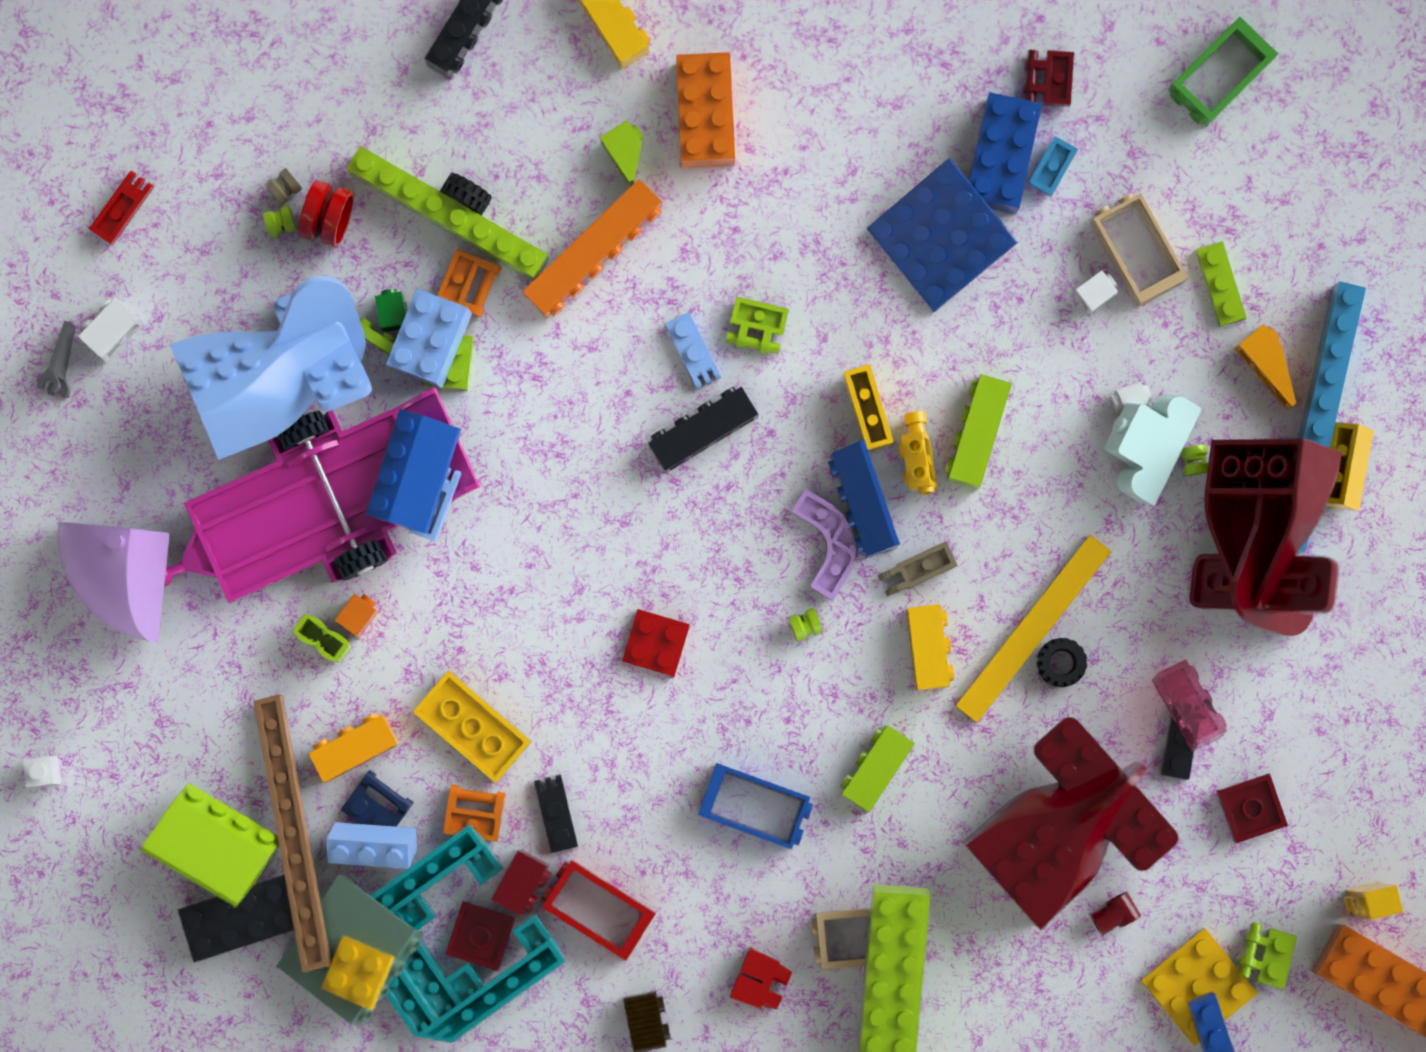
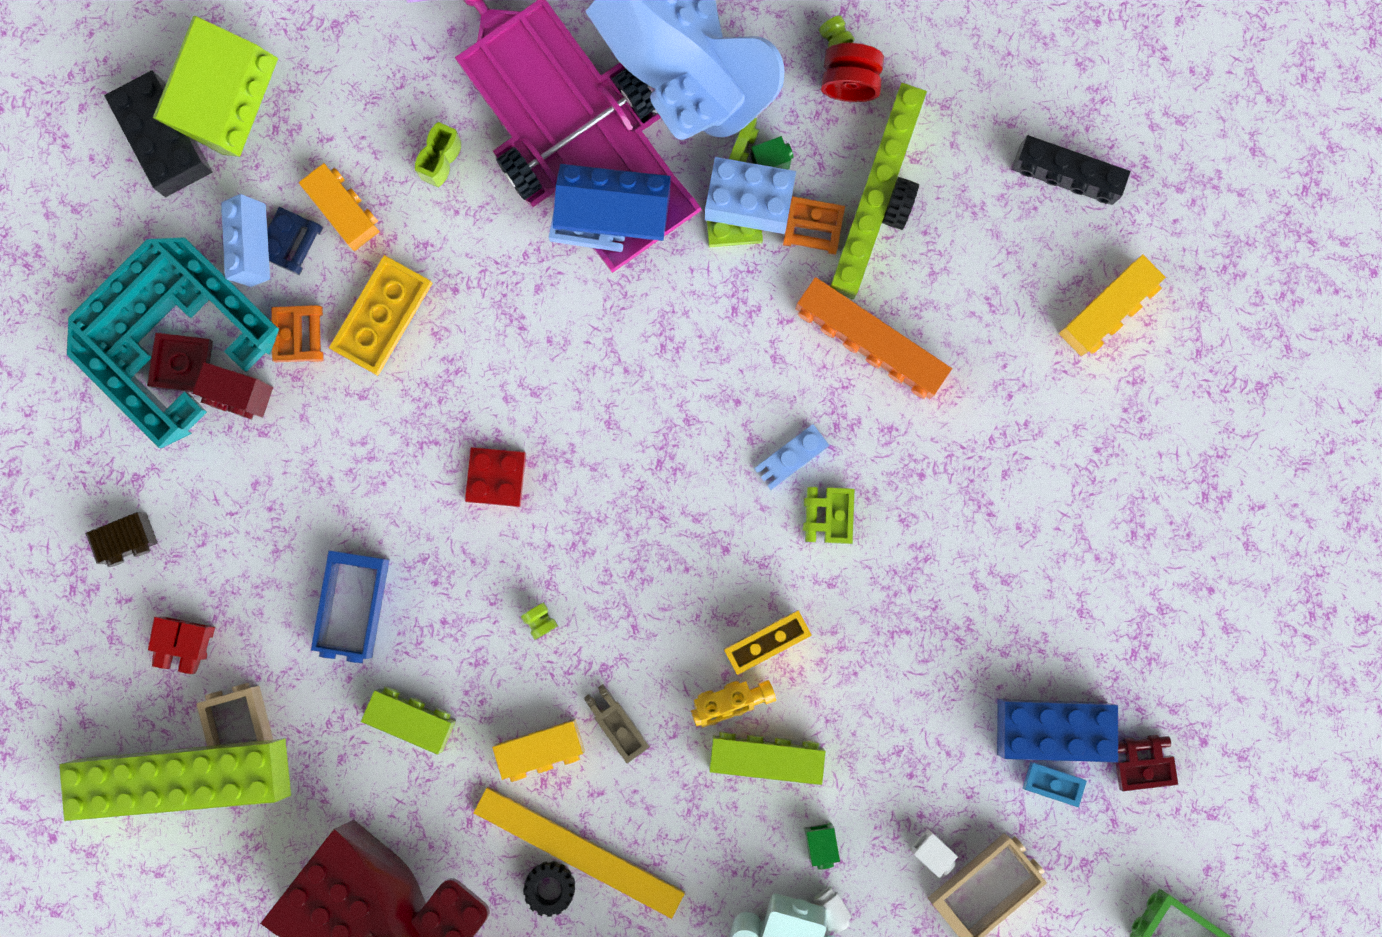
camera: 80 degrees right, 0 degrees up
(283, 186) = (871, 30): dark tan wheel -> none
(292, 833) = (241, 163): medium nougat plate -> none
(357, 614) = (468, 184): orange brick -> none
(357, 972) = (111, 248): yellow plate -> none
(358, 915) = (137, 239): sand green panel -> none
(556, 815) = (310, 413): black hinge -> none
(597, 909) = (223, 471): window -> none
(625, 149) = (979, 350): lime slope -> none
(703, 429) = (714, 482): black brick -> none
(705, 110) = (1036, 421): orange brick -> none
(837, 536) = (628, 639): lavender plate -> none
(864, 500) = (673, 657): blue slope -> none
(942, 235) = (960, 684): blue plate -> none
(1069, 395) = (822, 846): none -> green brick

